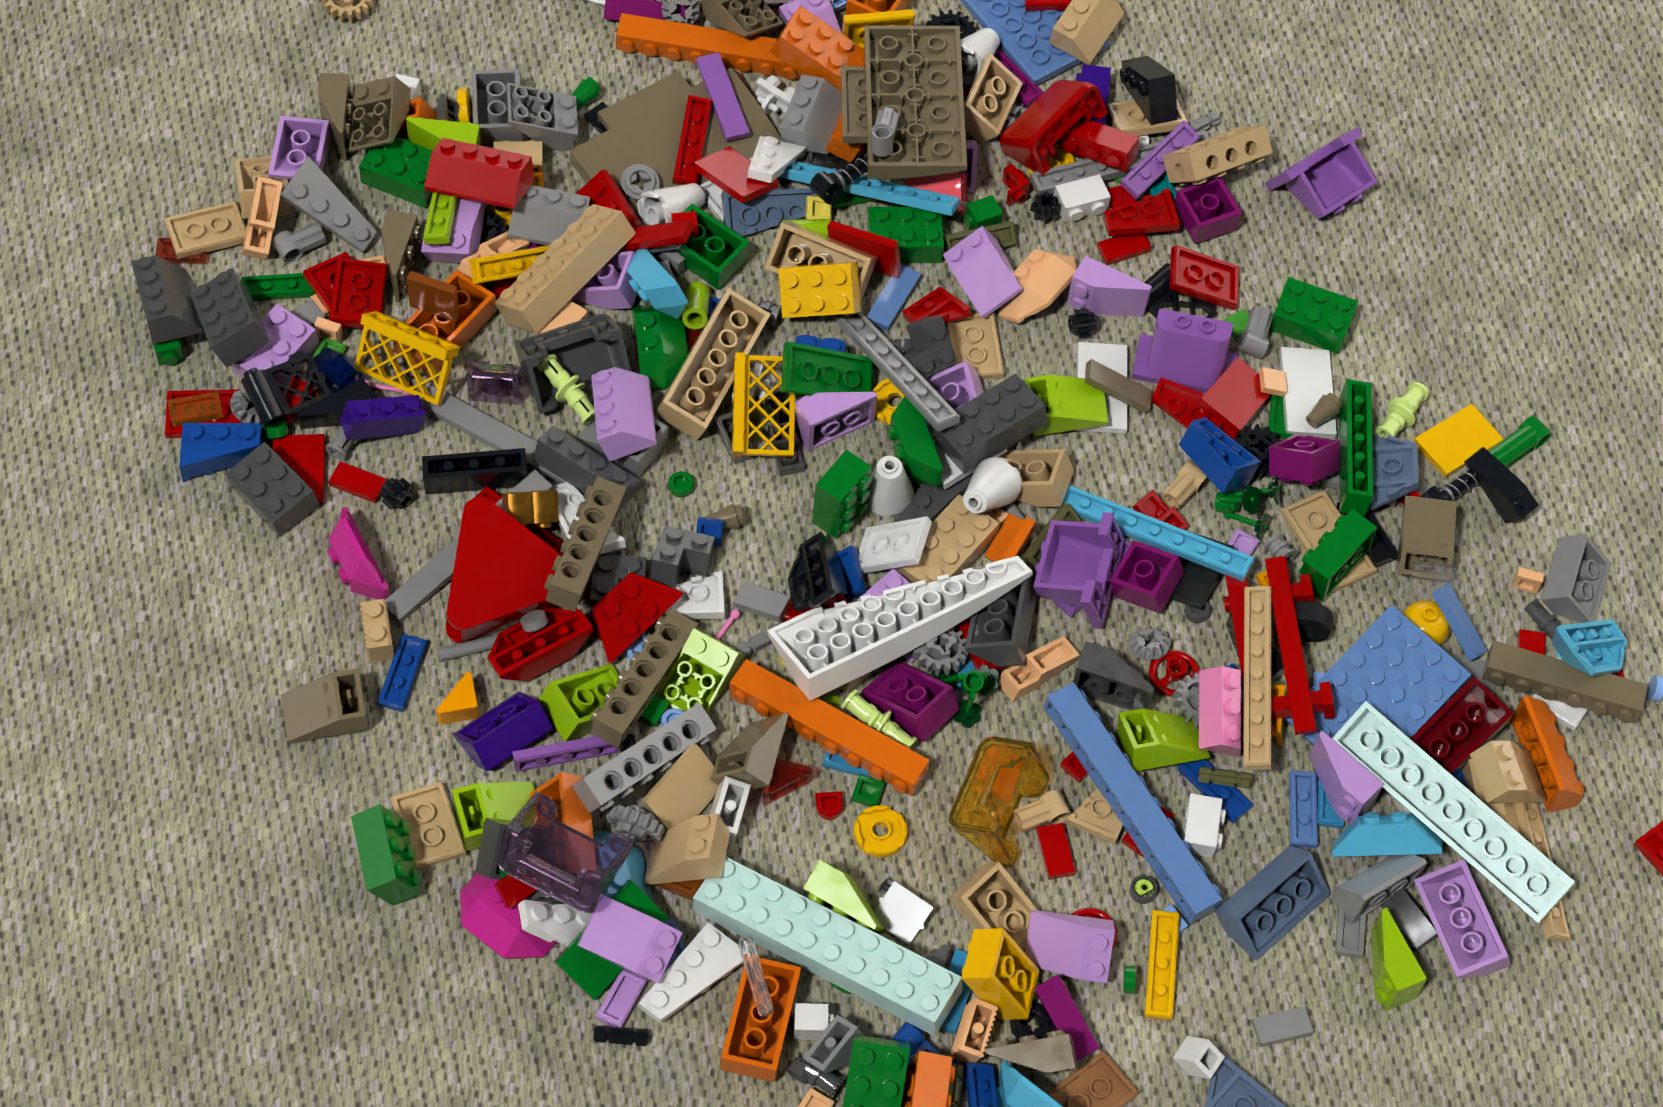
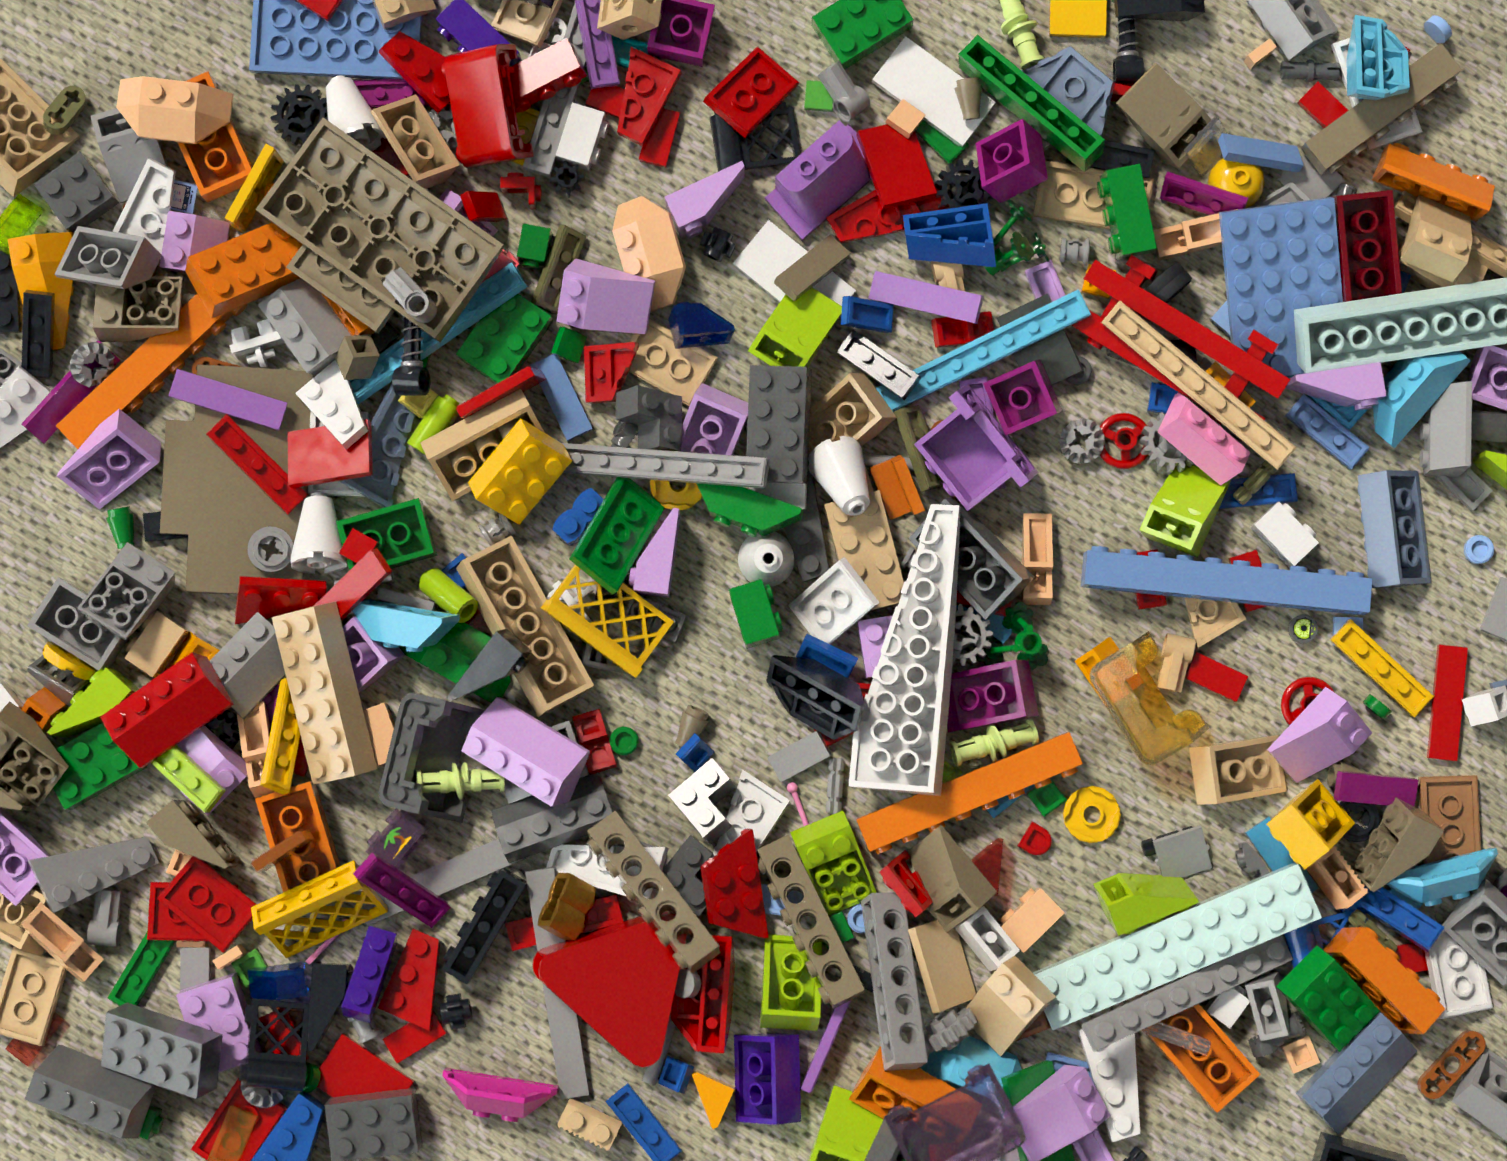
camera: 45 degrees left, 25 degrees up
(392, 455) = (413, 981): none -> red wing
(457, 666) = (676, 1074): none -> blue tile
(461, 395) = (401, 890): none -> magenta tile
(624, 56) = (111, 459): none -> lavender slope
(667, 462) = (594, 737): none -> red slope
(669, 347) = (497, 660): none -> slope
(725, 722) = (906, 884): none -> red wing
(766, 835) = (1030, 918): none -> light nougat brick
(797, 968) = (1186, 992): none -> light grey plate
(815, 149) = (357, 357): none -> dark tan brick
(933, 277) = (569, 344): none -> green tile
(982, 165) = (483, 206): none -> red tile
(1015, 345) = (698, 326): none -> clear blue slope
(1041, 71) = (419, 67): none -> red wing
(1087, 472) = (878, 365): none -> plate
(1111, 679) = (1093, 510): flat silver slope -> none
(1116, 443) = (867, 314): none -> blue tile
(1161, 471) = (926, 297): none -> tile
(1171, 1034) = (1447, 702): none -> red tile
(1310, 977) = (1478, 549): none -> light blue tile
(1351, 613) = (1188, 237): none -> light nougat slope
(1387, 593) = (1199, 195): none -> magenta tile

